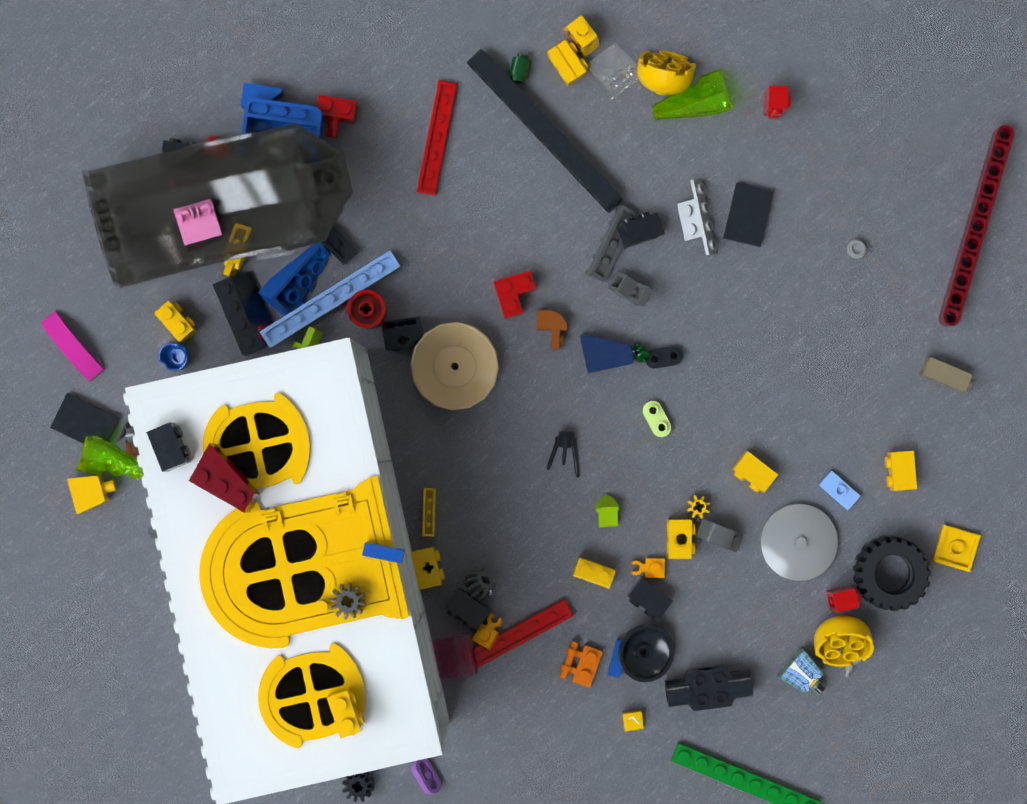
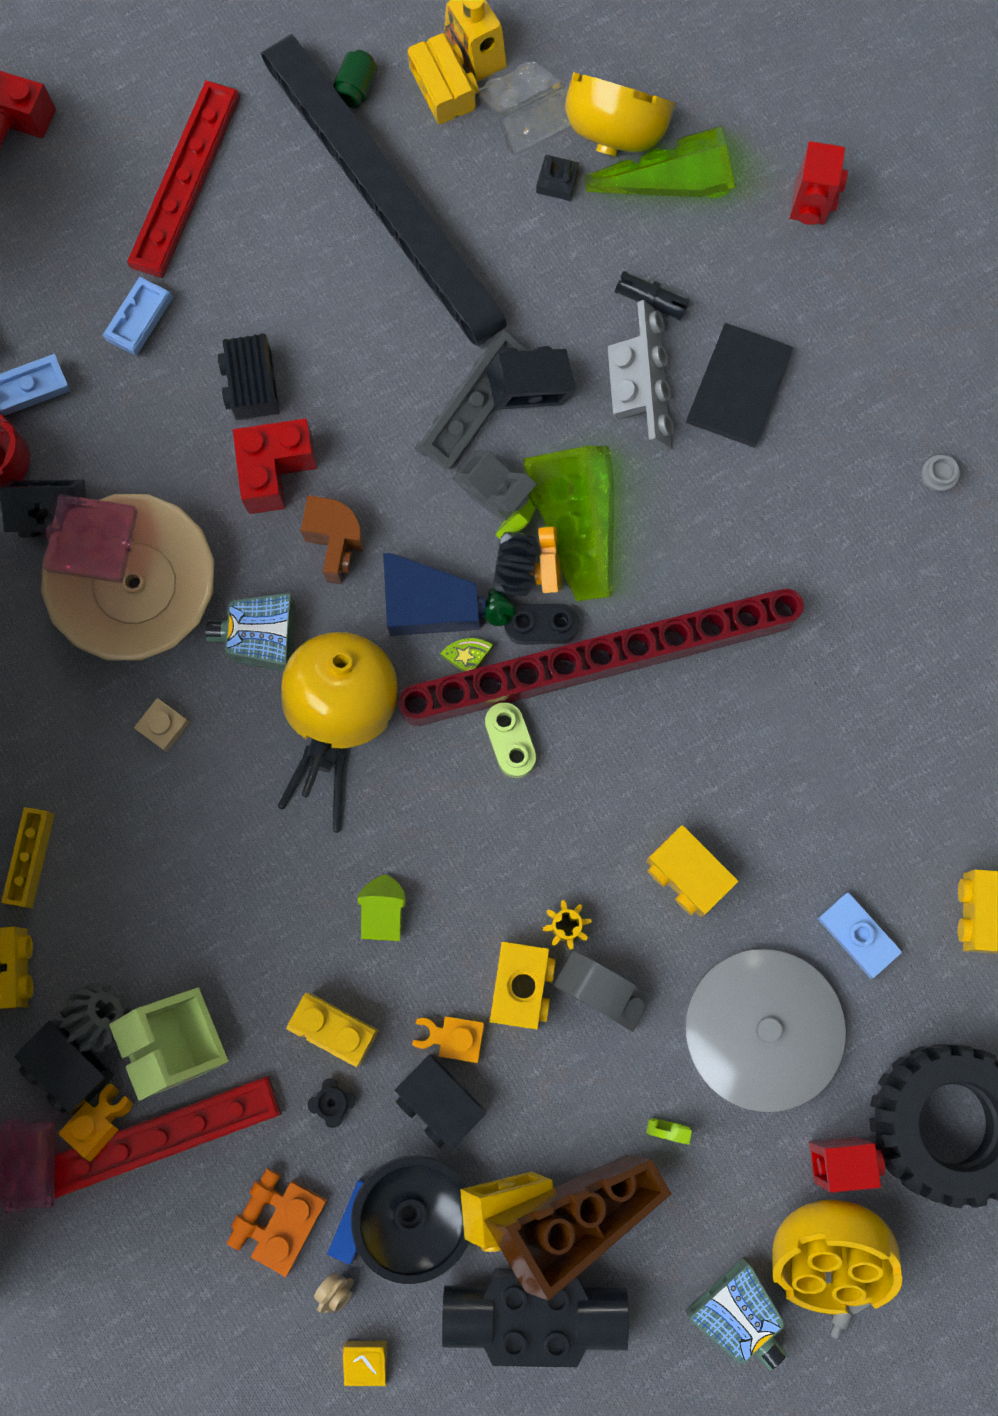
camera: 10 degrees right, 10 degrees down
(428, 221) = (137, 316): none -> light blue plate
(435, 351) = (90, 538): none -> clear pink plate
(481, 436) = (162, 725): none -> tan plate
(494, 248) = (249, 376): none -> black brick
(518, 590) = (168, 1043): none -> yellowish green piece
(522, 383) = (257, 631): none -> torso
(570, 408) = (339, 689): none -> yellow cylinder
(598, 611) = (320, 1105): none -> black plate
(613, 691) = (333, 1293): none -> tan plate
(628, 378) = (467, 653): none -> lime tile
(637, 110) = (557, 177): none -> black tile
(640, 310) = (517, 520): none -> lime tile
(647, 330) = (515, 563): none -> black gear
(663, 330) = (548, 569): none -> light orange plate
(675, 298) = (578, 498): none -> clear neon green wedge
(690, 642) = (494, 1197): none -> yellow brick
(696, 172) = (653, 294): none -> black pin
(706, 370) = (615, 644): none -> dark red beam
(722, 643) = (575, 1223): none -> reddish brown wedge
(759, 595) = (669, 1130): none -> lime tile

